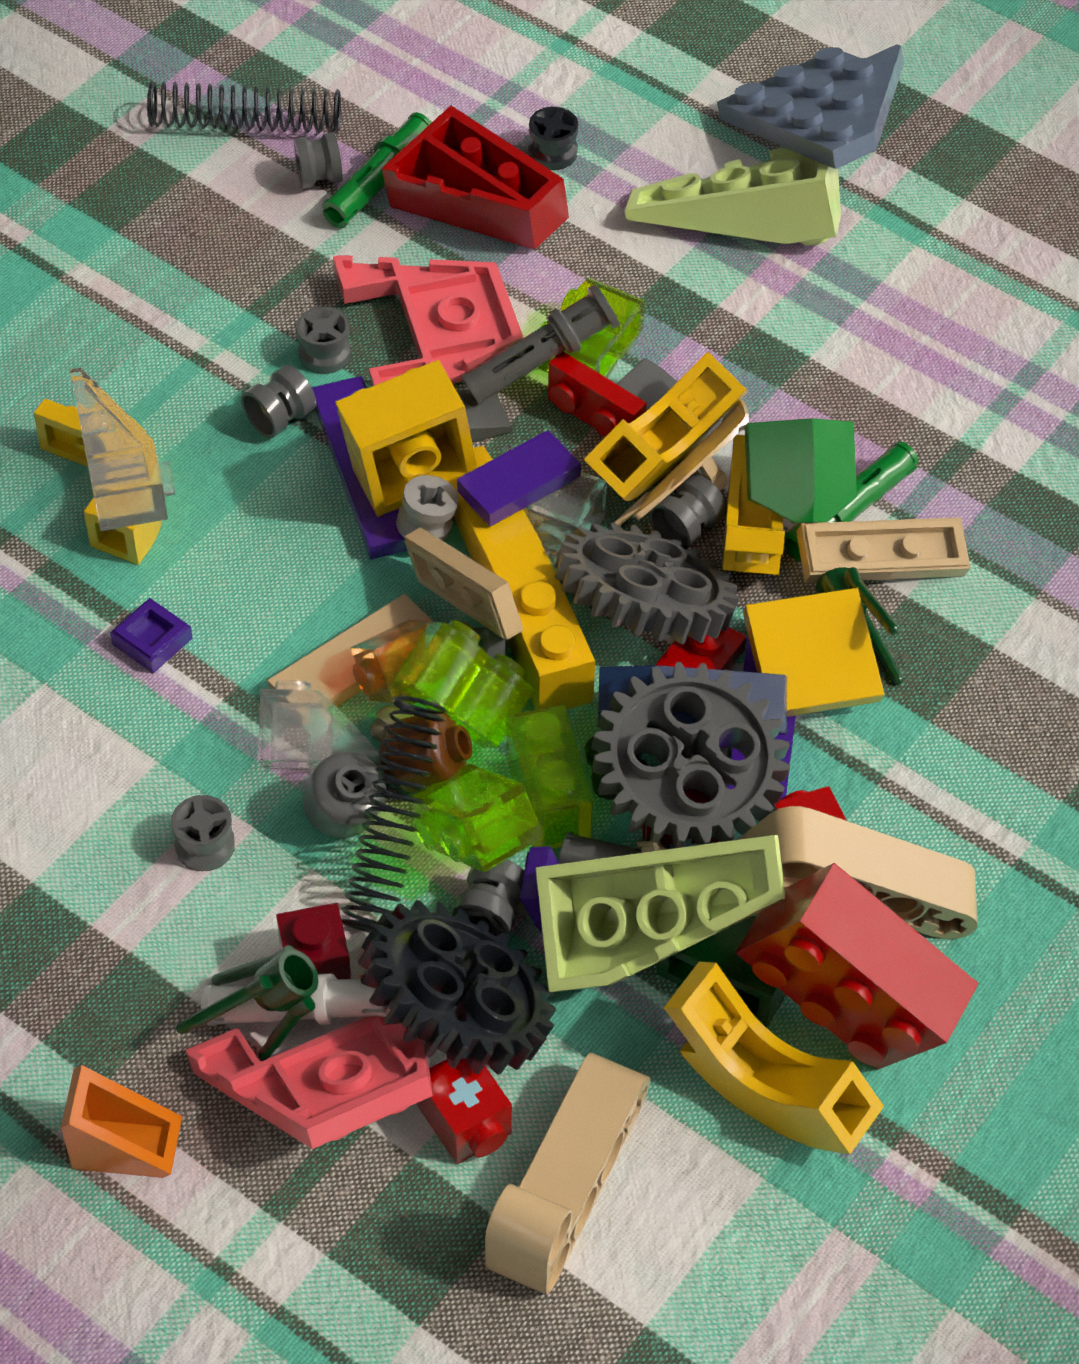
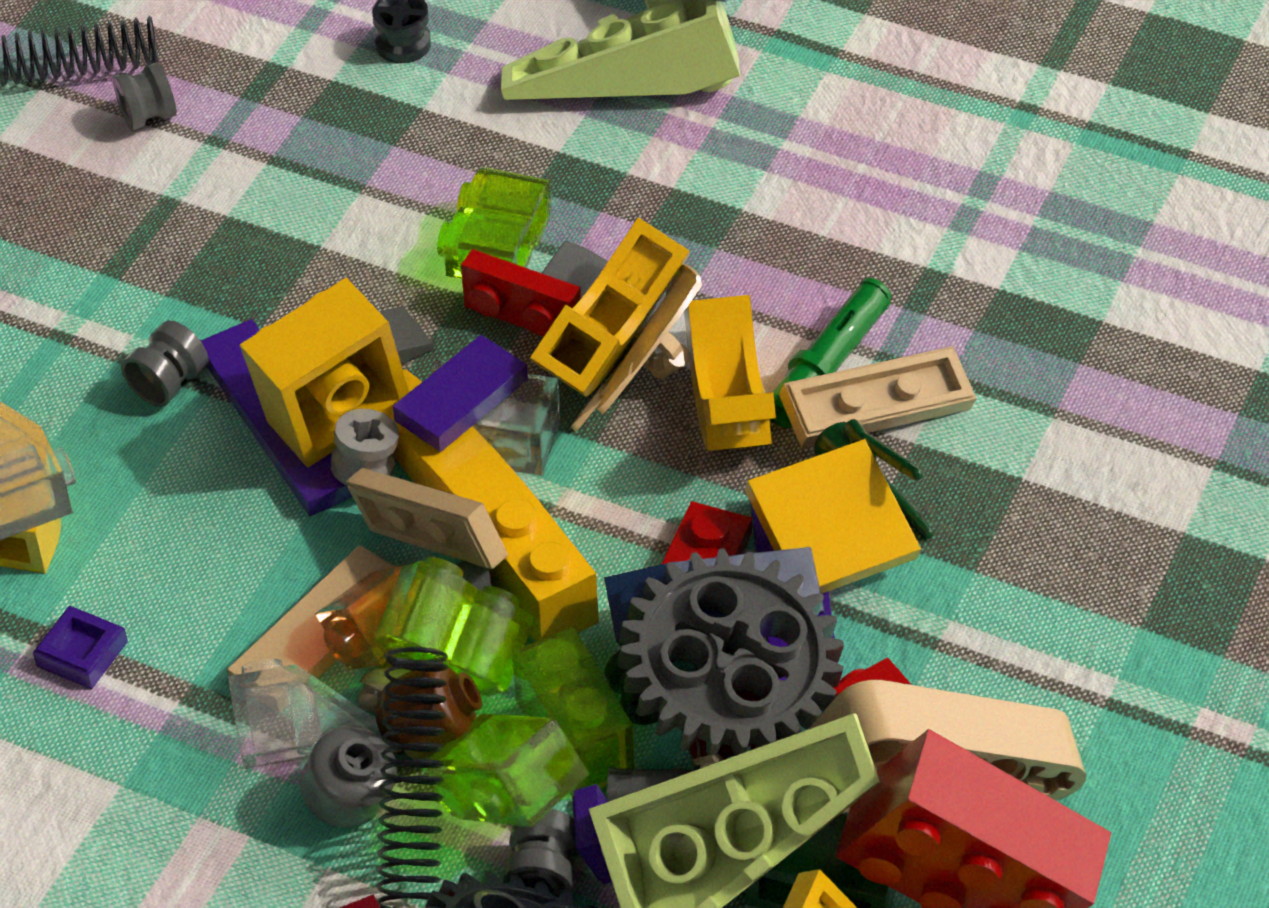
camera: 10 degrees left, 5 degrees down
(207, 818) = (203, 835): dark grey wheel -> none
(323, 340) = (199, 288): dark grey wheel -> none
(369, 179) = (225, 78): green pin -> none
(451, 307) = (327, 227): coral wing -> none
(476, 182) = (330, 88): red wedge -> none
(563, 332) = (469, 228): dark grey pin -> none
(646, 582) = (629, 479): dark grey gear -> none
(692, 508) = (649, 402): dark grey wheel -> none
(801, 467) = (769, 323): green slope -> none

